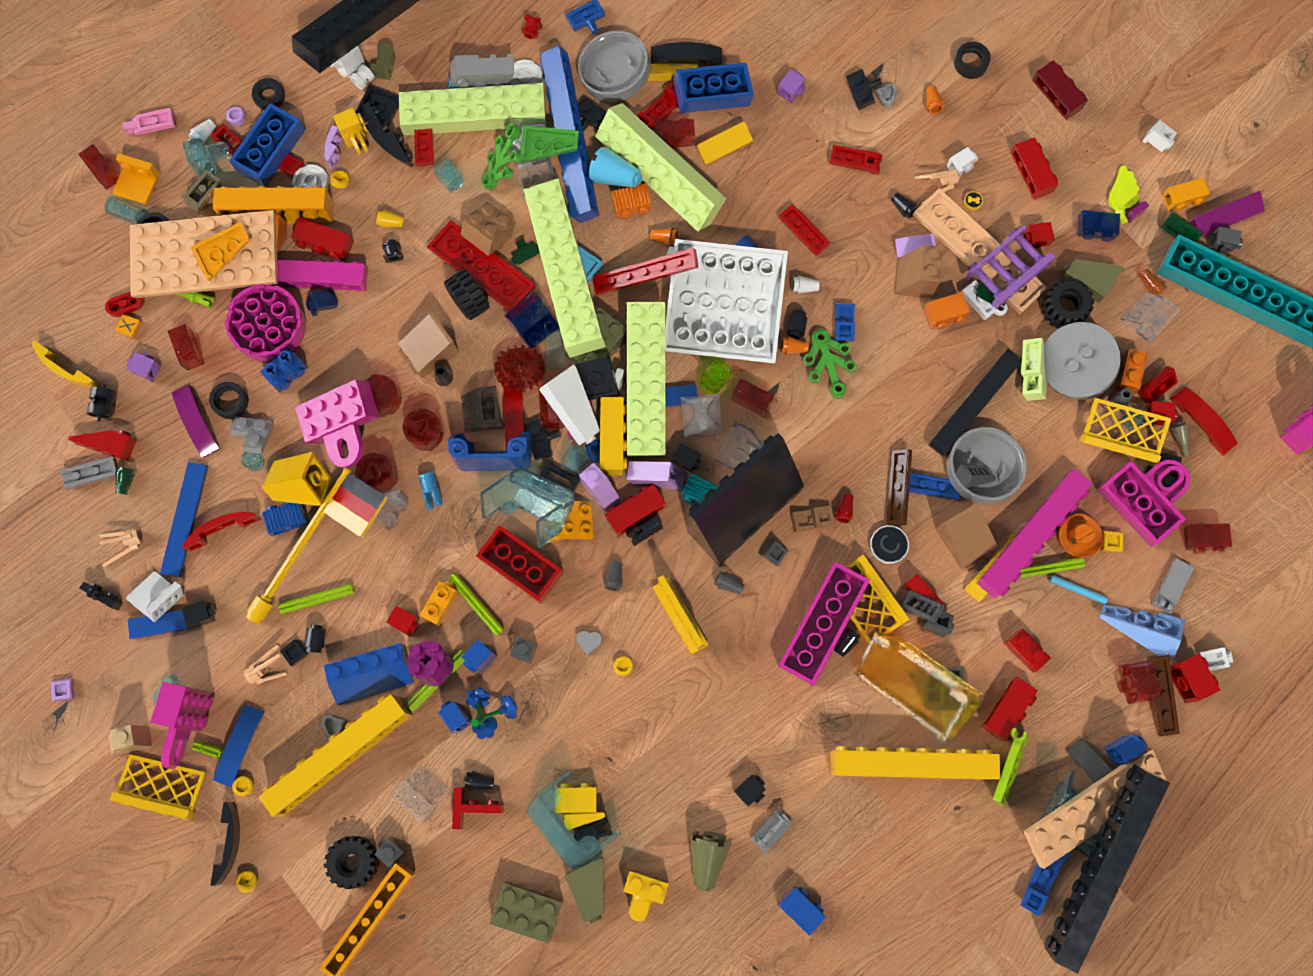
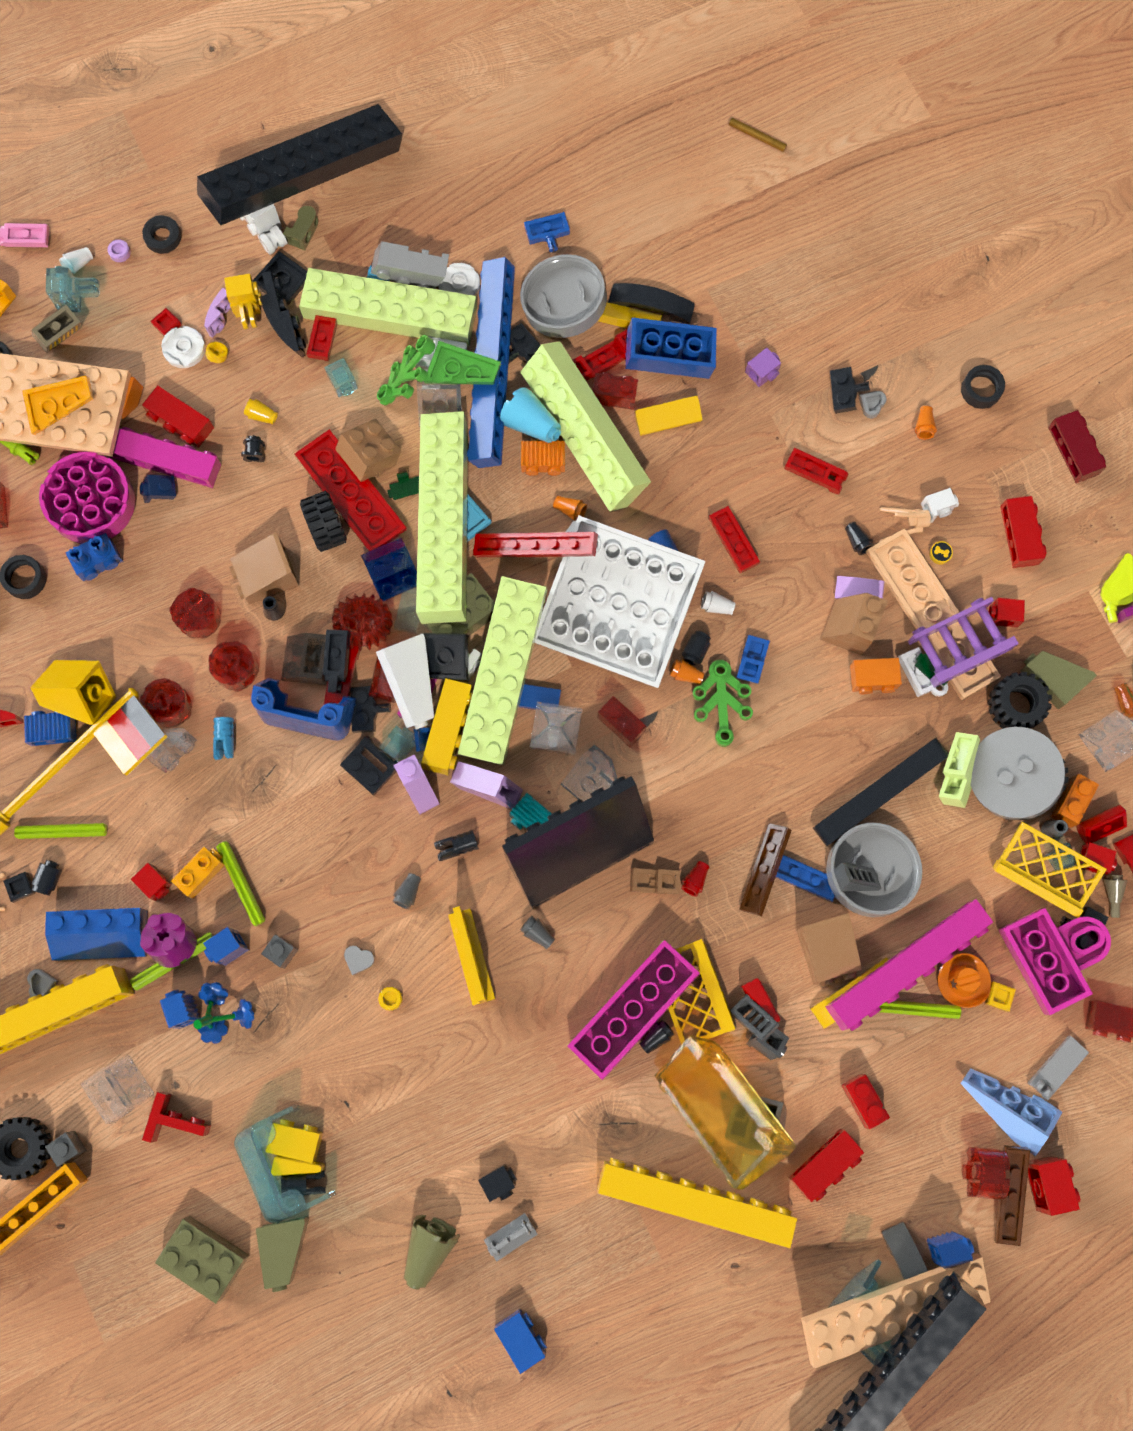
camera: 10 degrees right, 0 degrees up
(220, 132) = (95, 266): red slope -> none
(248, 458) = (27, 649): clear light blue wheel -> none
(256, 433) = (43, 621): light grey plate -> none
(267, 145) = (144, 293): blue brick -> none
(289, 203) = (149, 366): light orange brick -> none
(338, 417) = (135, 629): brick -> none
(478, 781) = (188, 1091): black cone -> none
(507, 402) = (336, 659): none -> black hinge
(519, 564) = (301, 850): red brick -> none
(531, 27) = (481, 227): red brick -> none
(534, 495) = (339, 772): clear light blue windscreen -> none
(578, 524) = (374, 813): light orange bracket -> none
(635, 509) = (451, 819): red brick -> none
(644, 891) = (345, 1270): yellow brick -> none
(686, 458) = (526, 773): black brick -> none
(715, 377) = (584, 687): clear neon green wheel -> none
(773, 551) = (599, 908): dark grey slope -> none
(889, 544) = (736, 934): black tile -> none
(1011, 767) = (808, 1236): lime tile -> none
(1040, 885) = (806, 1385): blue slope -> none
(1078, 589) = (945, 1043): medium azure bar -> none
(1098, 225) = (1081, 617): clear blue brick -> none
(1218, 658) = (1088, 1168): white bracket -> none

